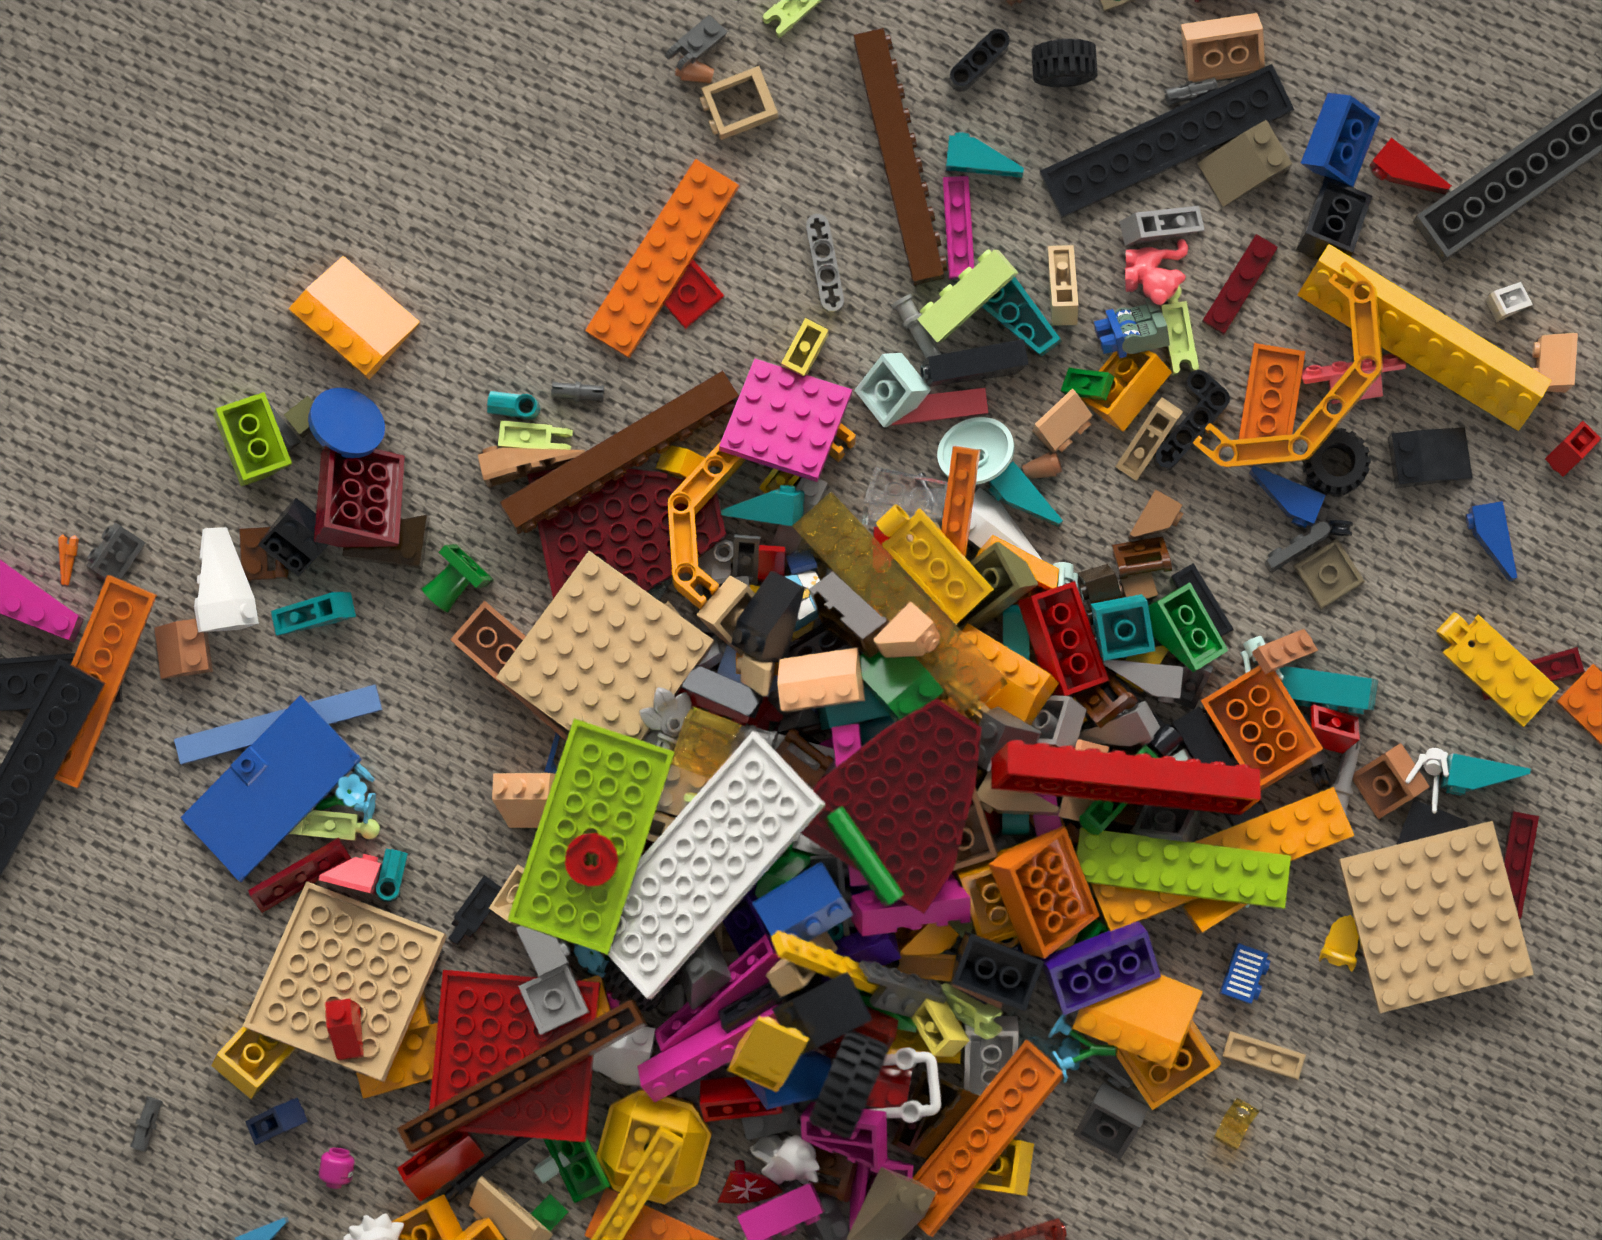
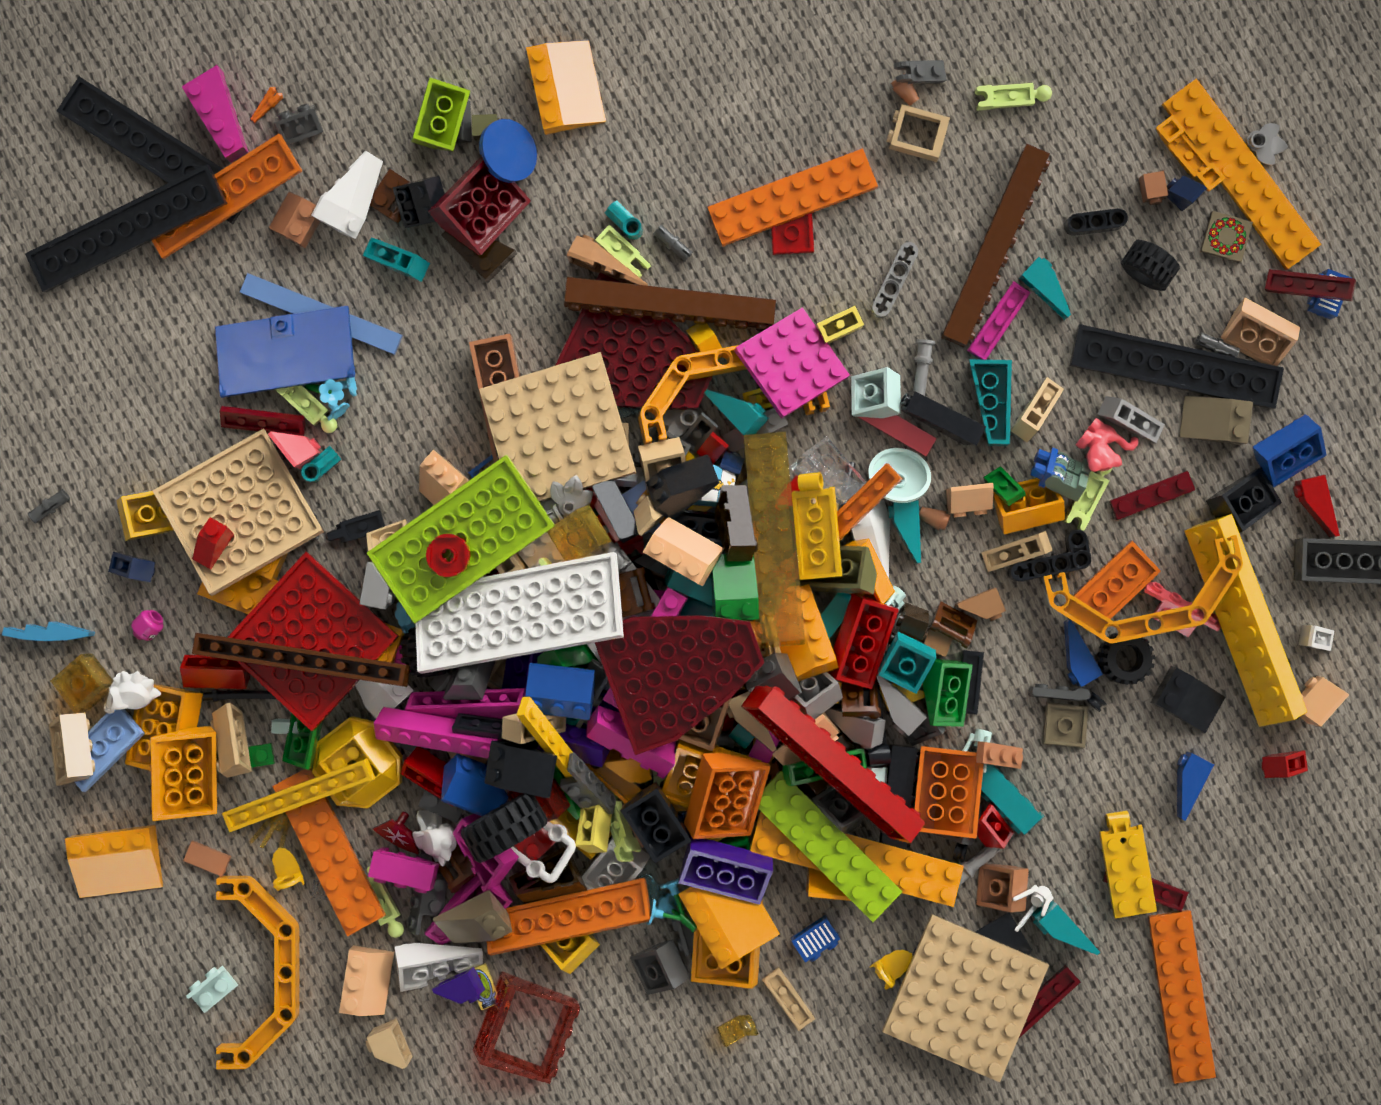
camera: 35 degrees right, 5 degrees up
(455, 578) = (503, 304): green plant -> none
(554, 999) = (359, 625): light grey plate -> none
(767, 1053) = (465, 768): yellow slope -> none
(863, 856) = (623, 689): green brick -> none
(908, 634) = (763, 565): light nougat slope -> none
(967, 295) = (971, 370): yellowish green brick -> none

